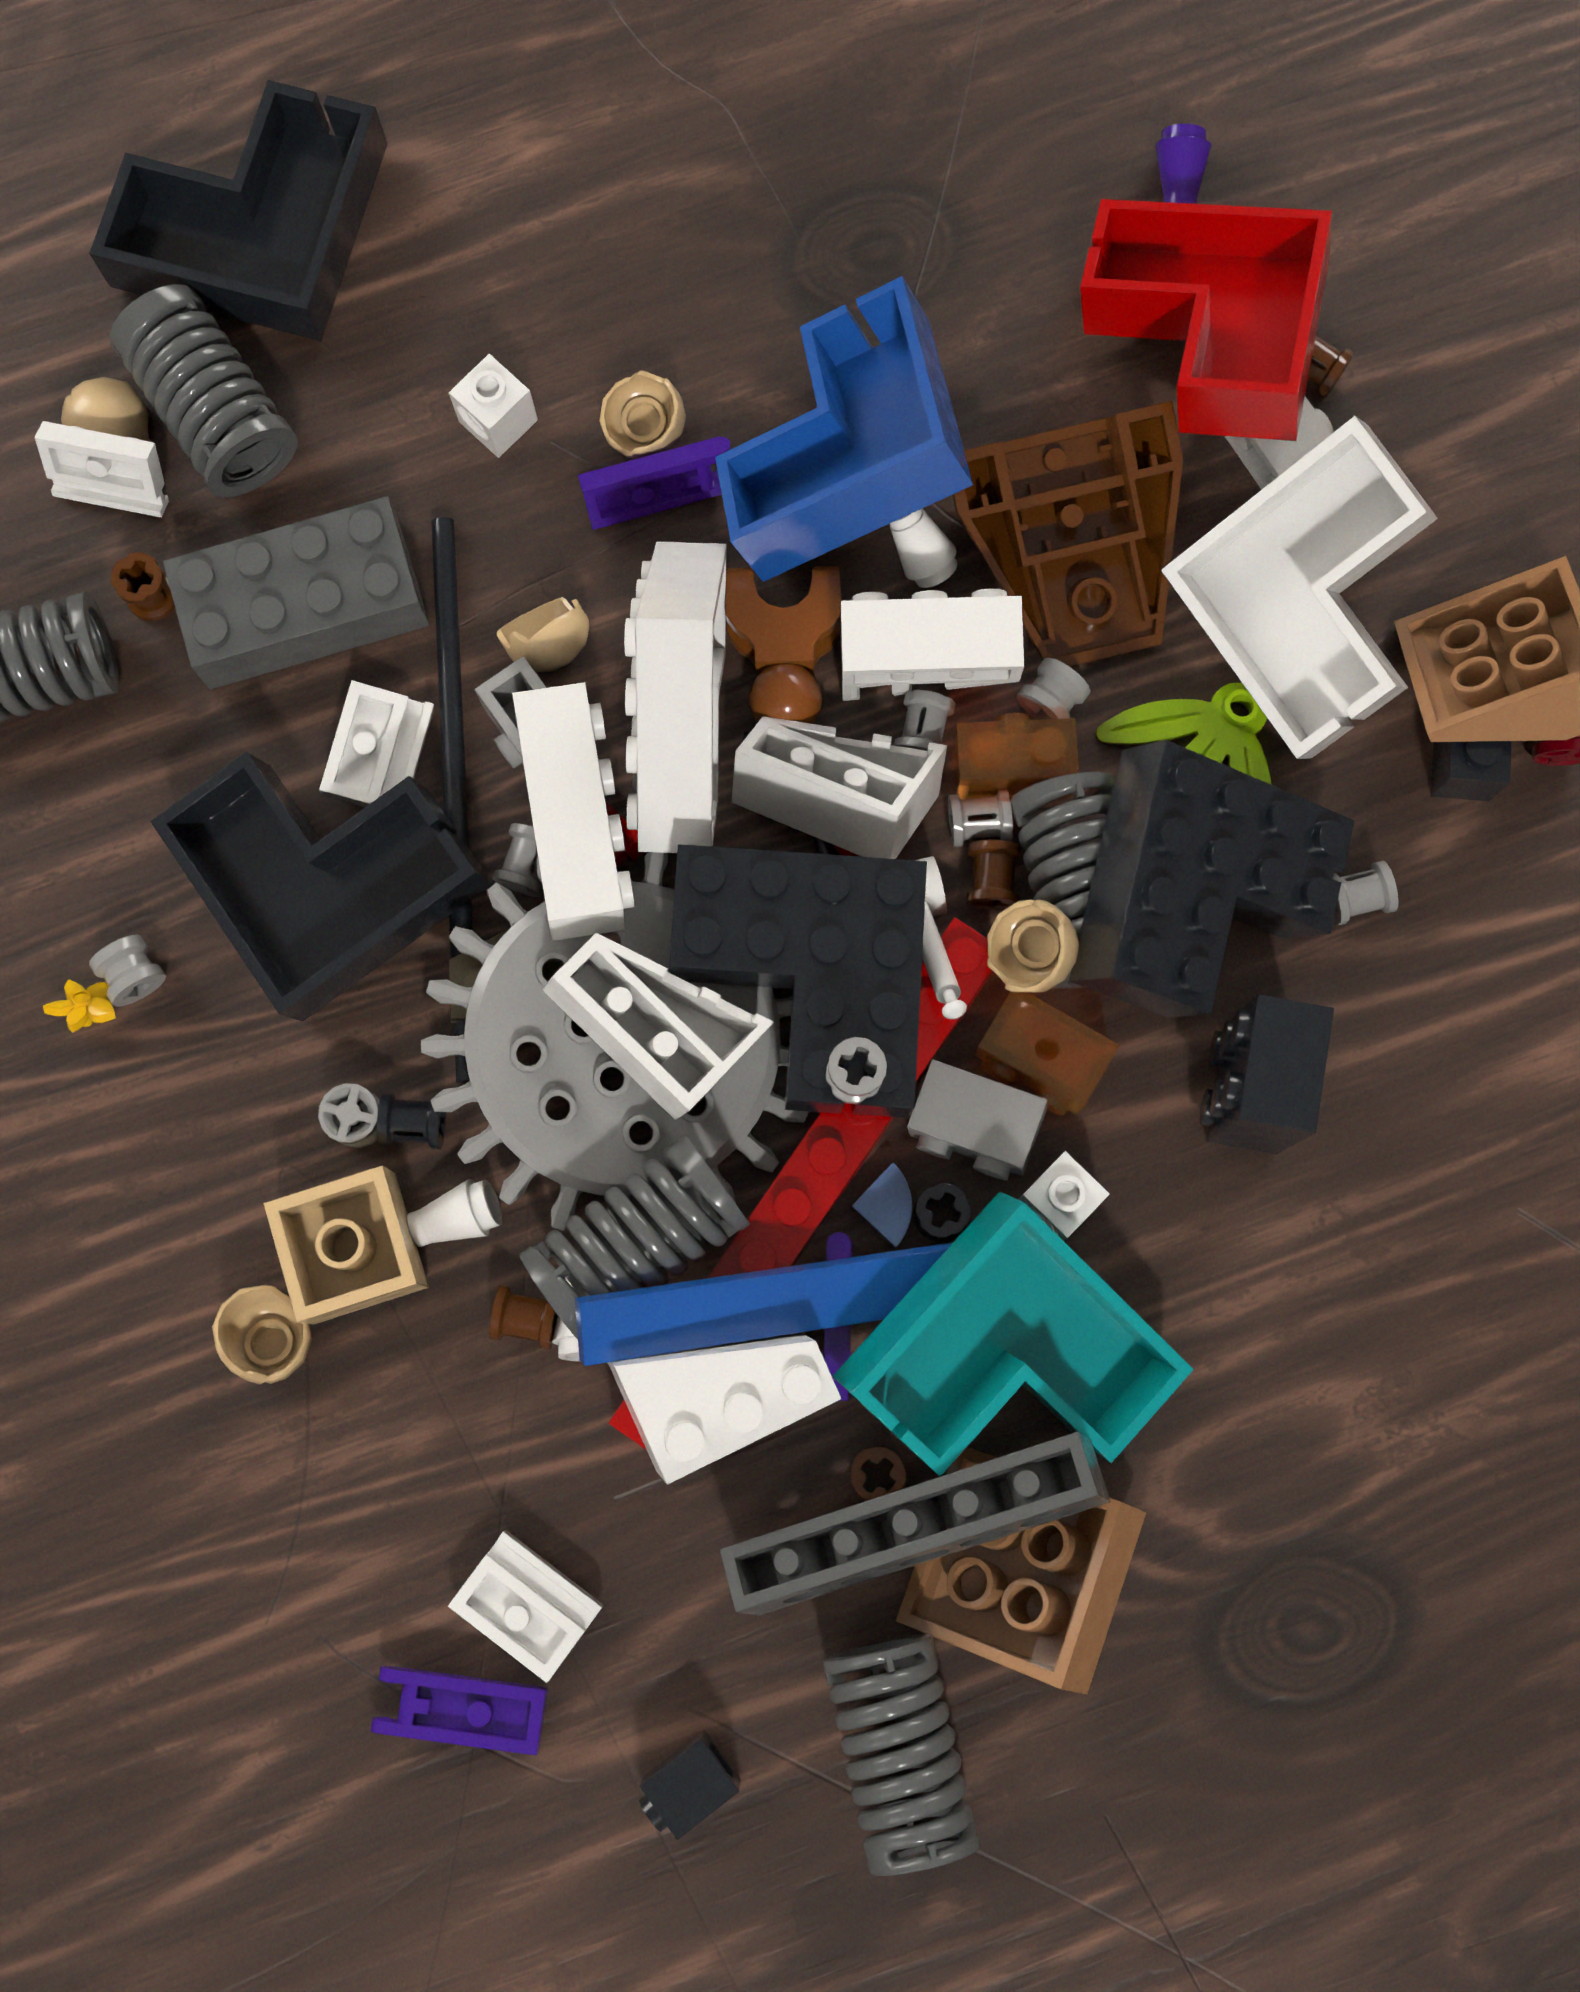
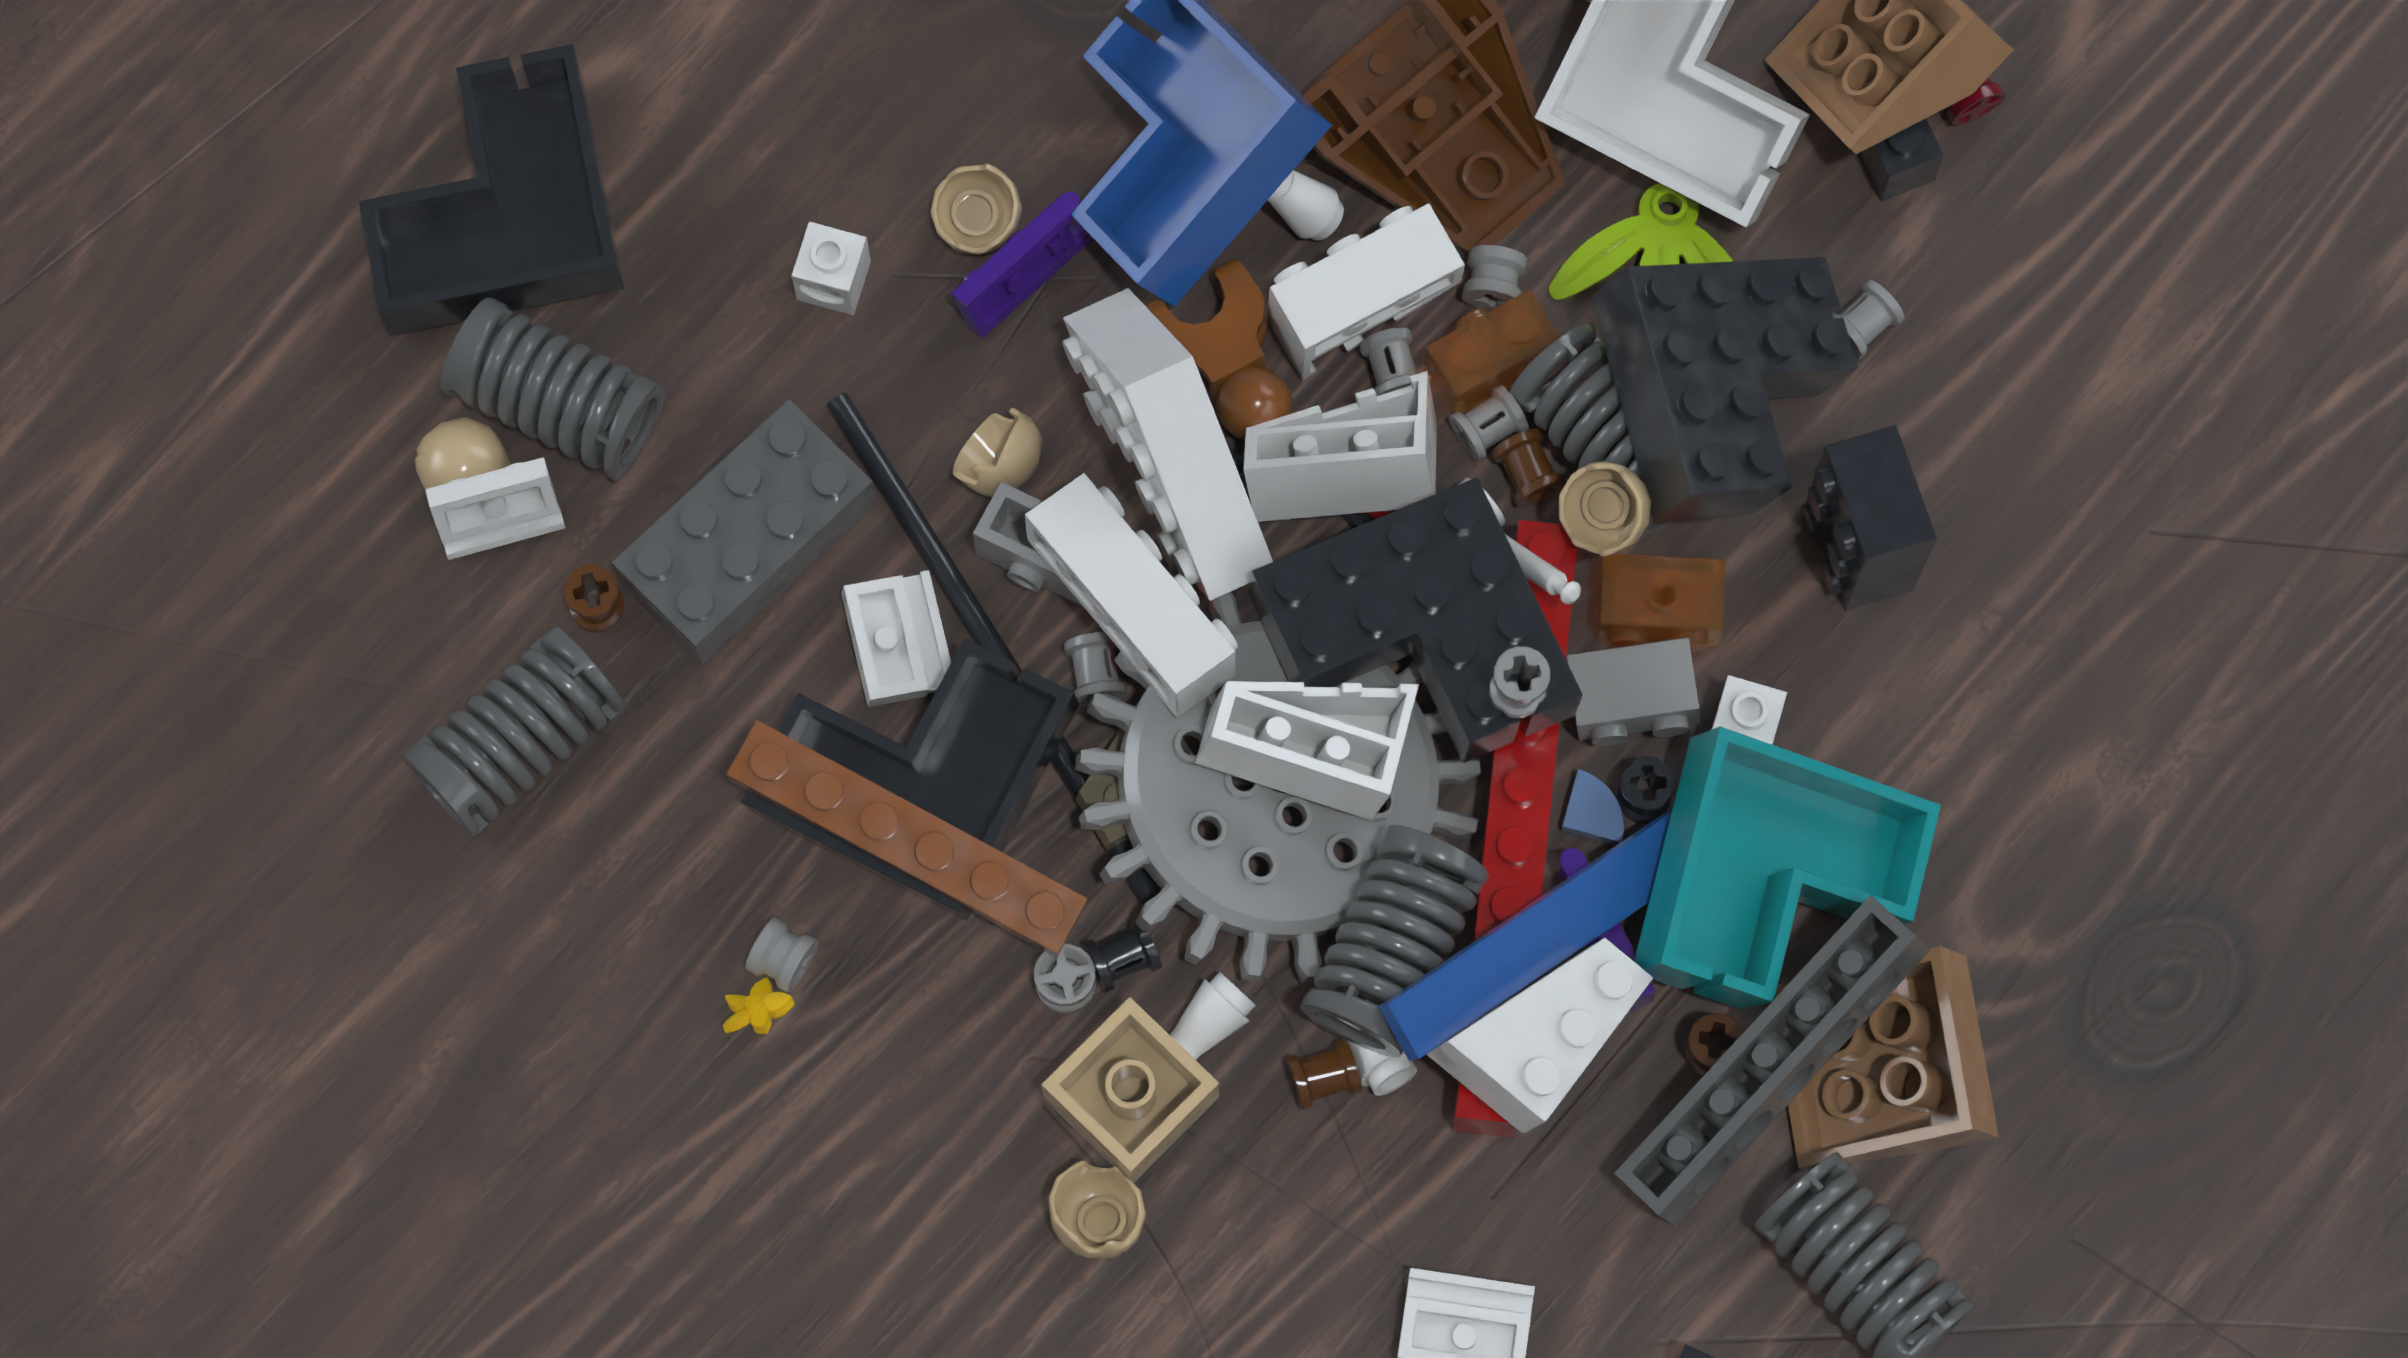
camera: 30 degrees left, 5 degrees down
(288, 972) = (907, 838): none -> dark orange arch

